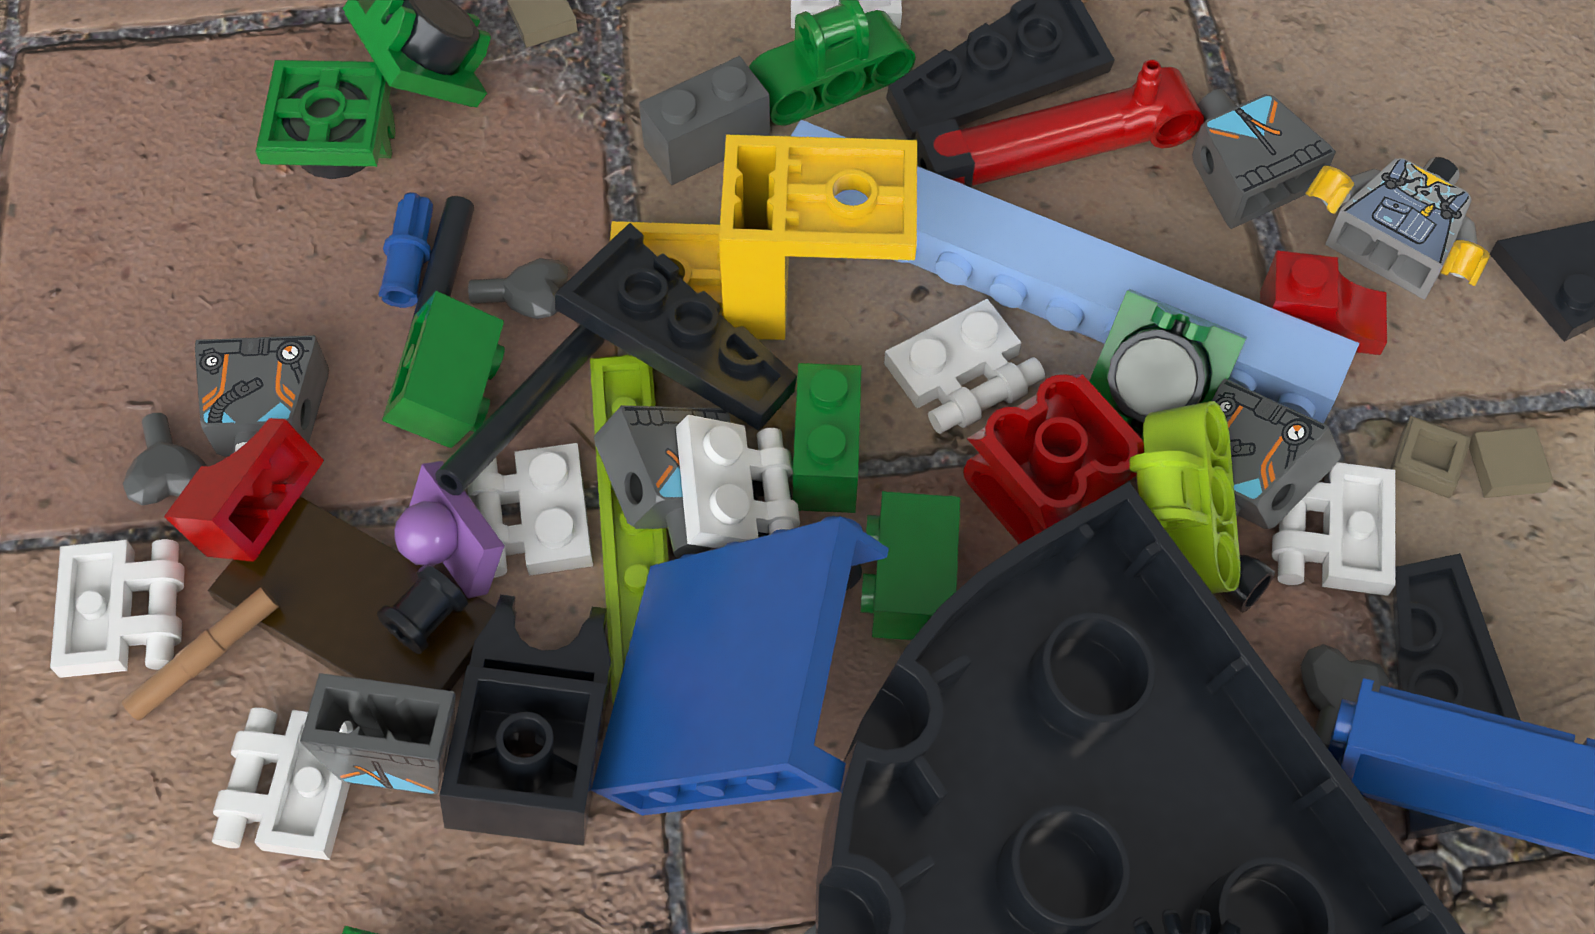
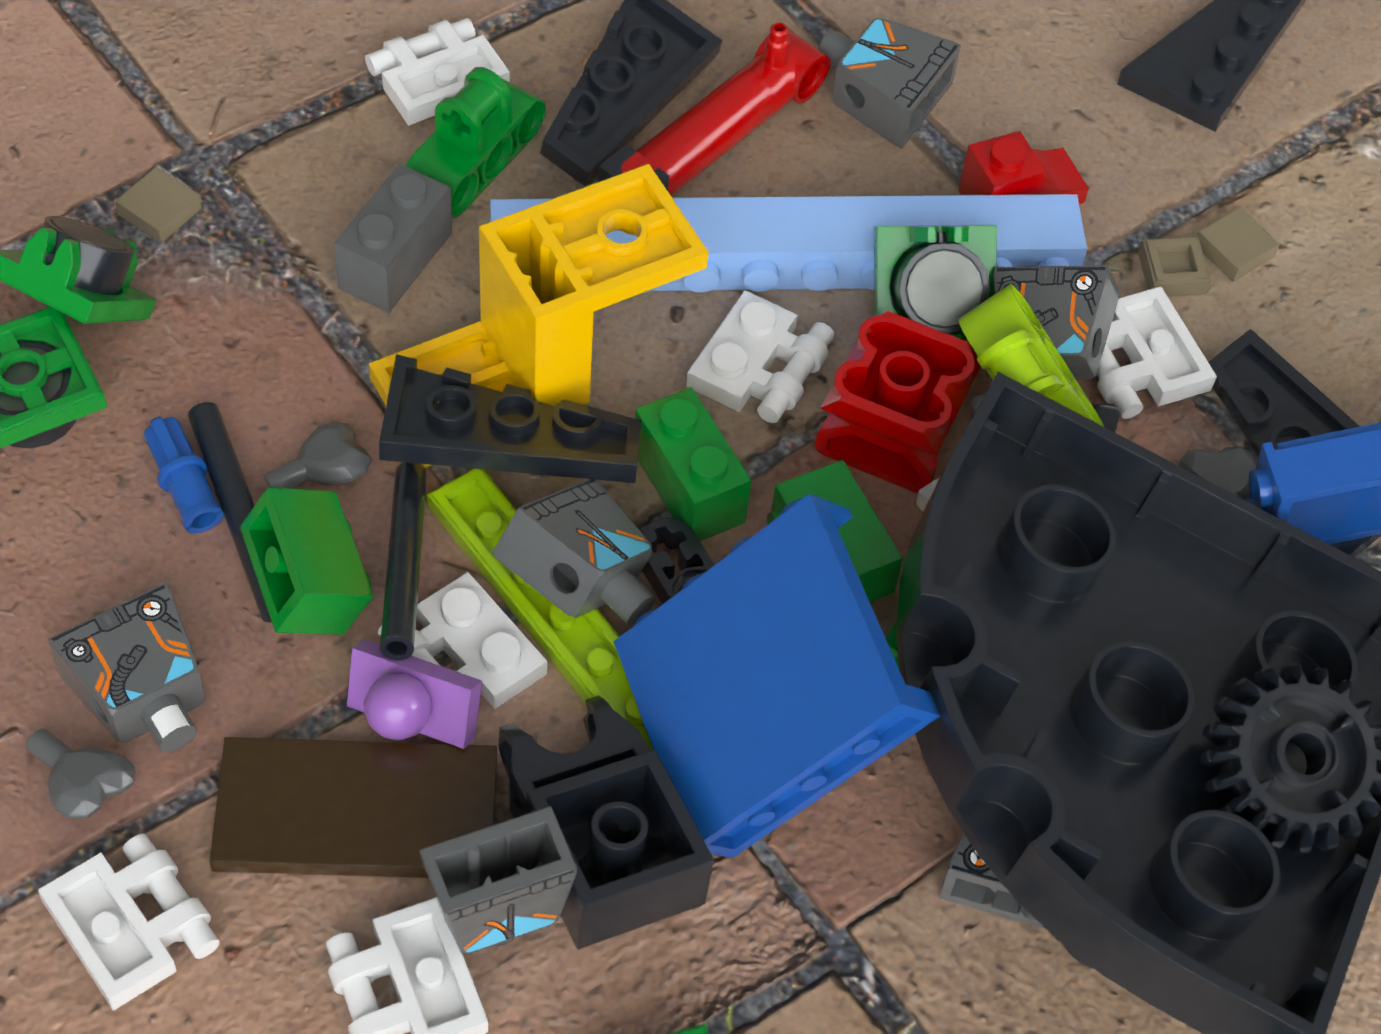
camera: 35 degrees left, 5 degrees down
(199, 654) = (244, 918): medium nougat piece -> none
(245, 497) = (196, 759): red arch -> none
(422, 608) = (437, 772): black bush -> none
(718, 482) = (633, 533): white plate -> none
(1403, 222) = (1048, 84): torso -> none

